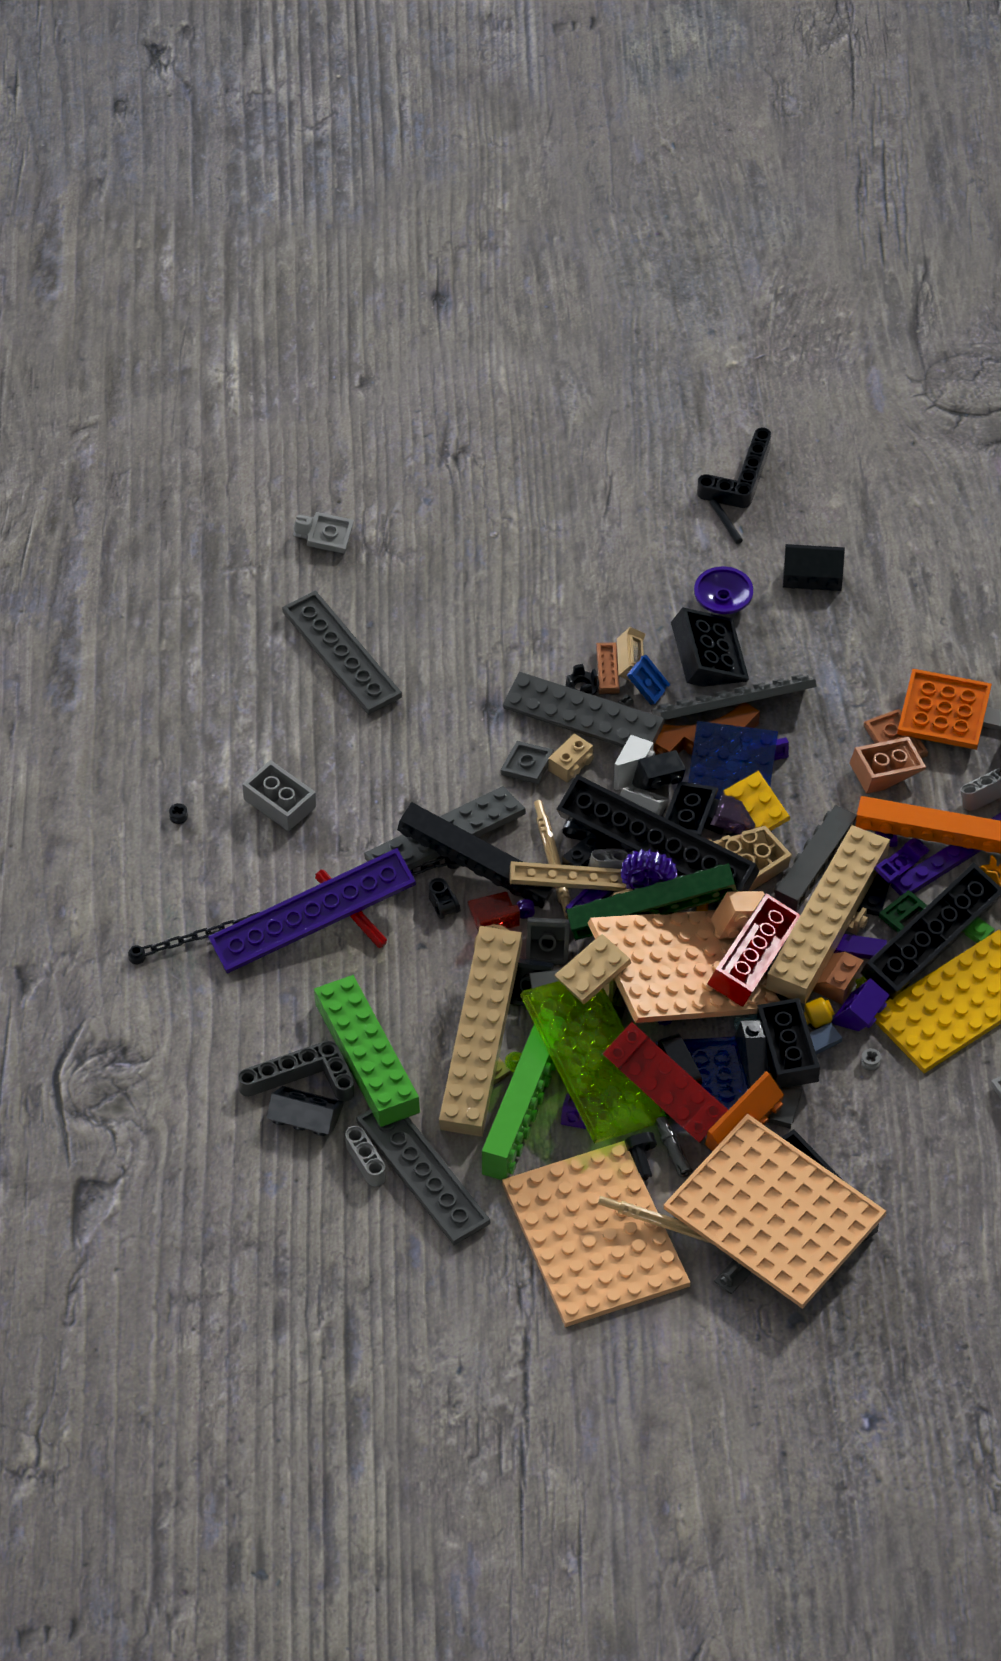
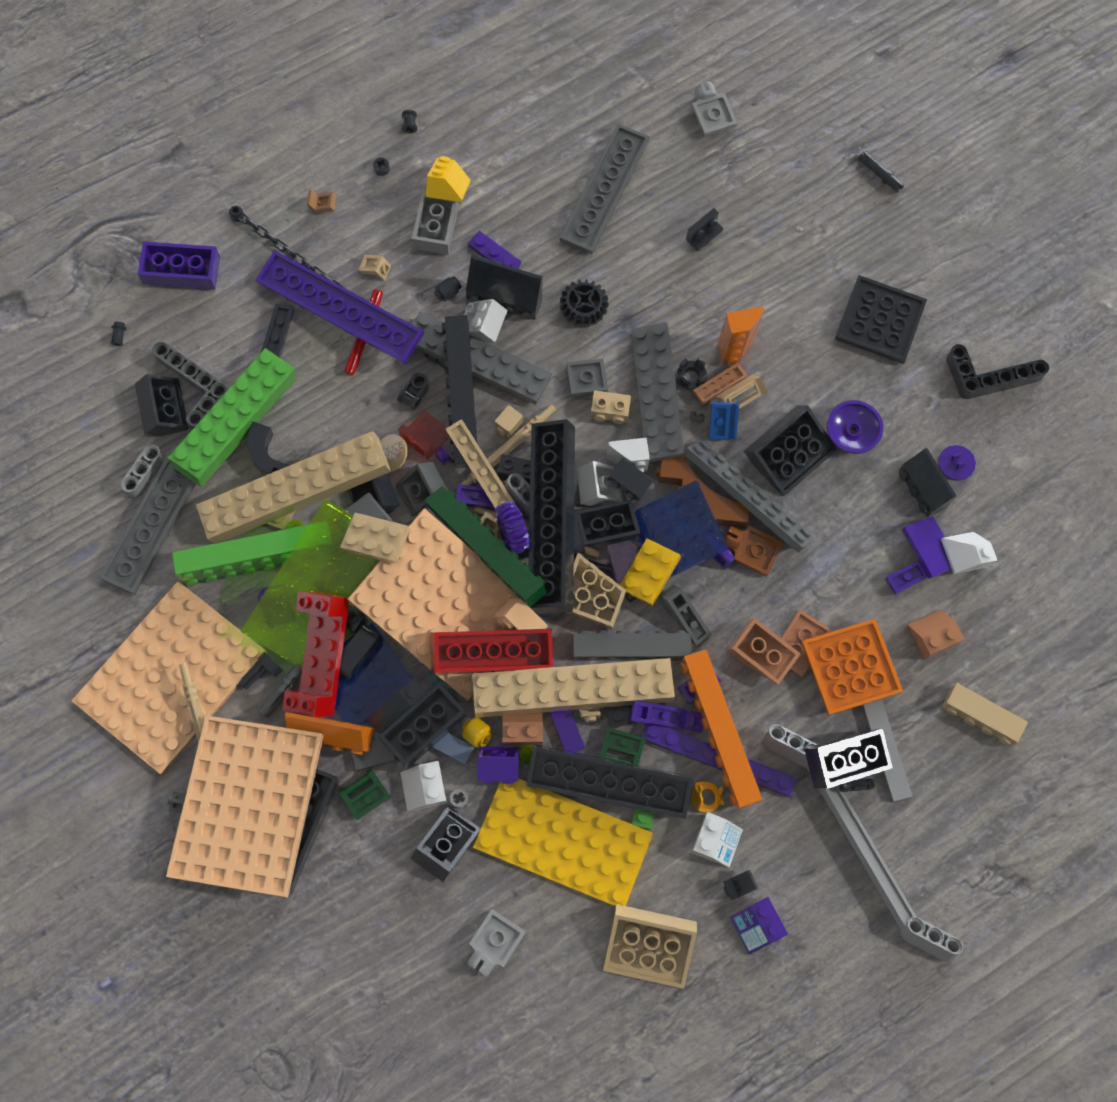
camera: 55 degrees right, 20 degrees up
(143, 762) = (409, 121): none -> black bush
(164, 1022) = (179, 265): none -> dark purple brick
(182, 876) = (321, 202): none -> medium nougat bracket
(197, 1112) = (118, 333): none -> black pin
(244, 762) = (447, 180): none -> yellow slope
(284, 868) = (375, 265): none -> tan bracket
(293, 977) = (278, 329): none -> black plate
(342, 770) = (492, 251): none -> dark purple plate
(354, 822) = (447, 288): none -> black brick
(394, 771) = (510, 287): none -> black slope
(399, 803) = (485, 319): none -> white slope
(422, 1052) = (258, 442): none -> black arch
(446, 599) = (704, 230): none -> black bracket
(449, 725) = (584, 312): none -> black gear
(486, 444) = (886, 176): none -> black pin
(529, 841) = (508, 422): none -> tan brick
(580, 619) = (738, 334): none -> orange slope
(630, 521) = (881, 319): none -> black plate
(726, 521) = (935, 389): black bar -> none
(789, 721) = (753, 548): none -> dark orange plate
(805, 536) = (957, 462): none -> dark purple piece
(808, 803) = (684, 613): none -> dark grey slope
(826, 1127) = (366, 800): none -> dark green plate
(843, 1077) = (423, 786): none -> white slope
(872, 599) = (927, 545): none -> dark purple tile
(888, 631) = (906, 577): none -> dark purple plate
(896, 574) = (968, 552): none -> white slope
(909, 1088) = (445, 843): none -> black slope
(953, 638) = (935, 633): none -> nougat slope

